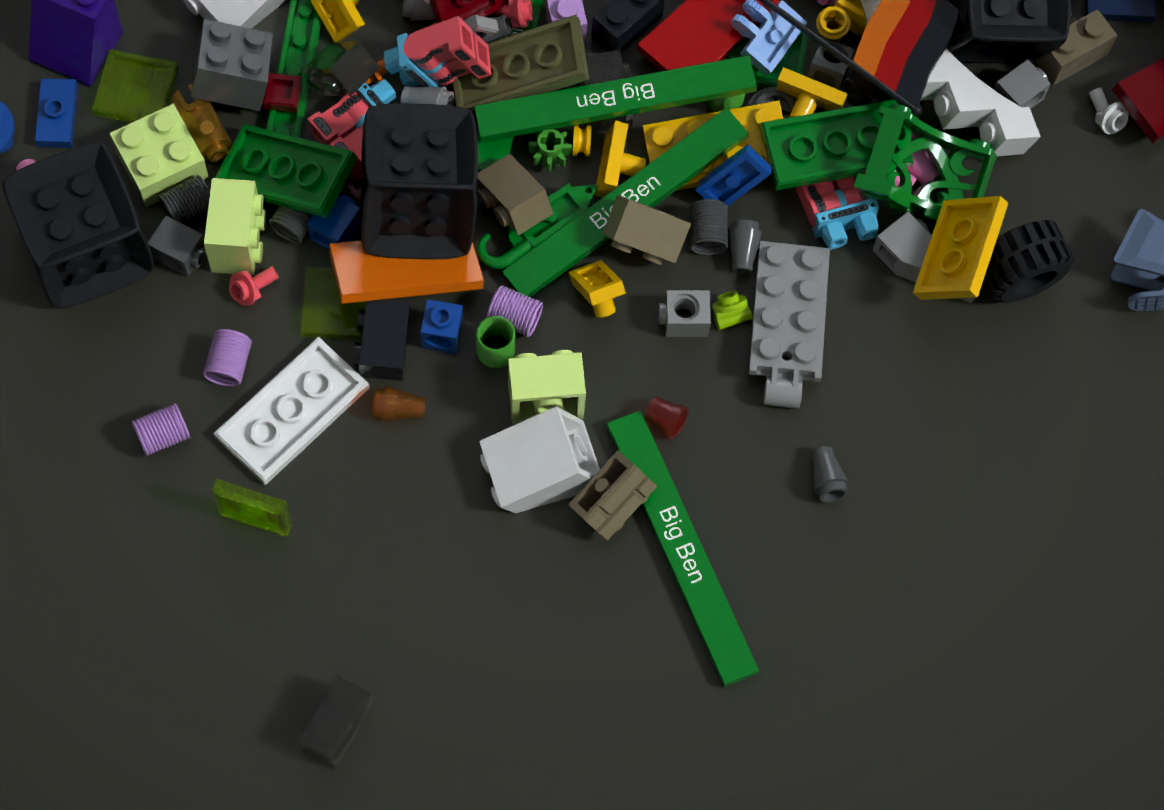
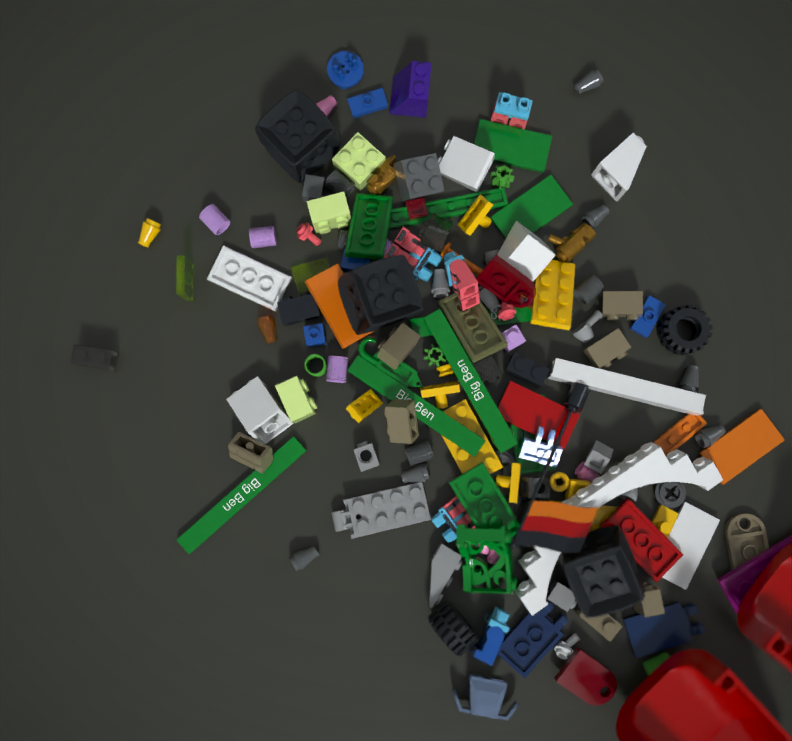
camera: 75 degrees right, 15 degrees up
(133, 86) = (395, 135): clear neon green tile -> none
(134, 554) = (148, 232): none -> yellow cone
(482, 24) = (484, 294): light grey tile -> none
(666, 416) = (307, 464): clear red piece -> none
(731, 310) = (378, 478): lime plate -> none
(734, 176) = (448, 457): blue plate -> none
(960, 248) = (443, 593): yellow plate -> none
(1051, 199) = (491, 637): none -> blue hips
(1080, 160) = (532, 639): none -> dark blue tile

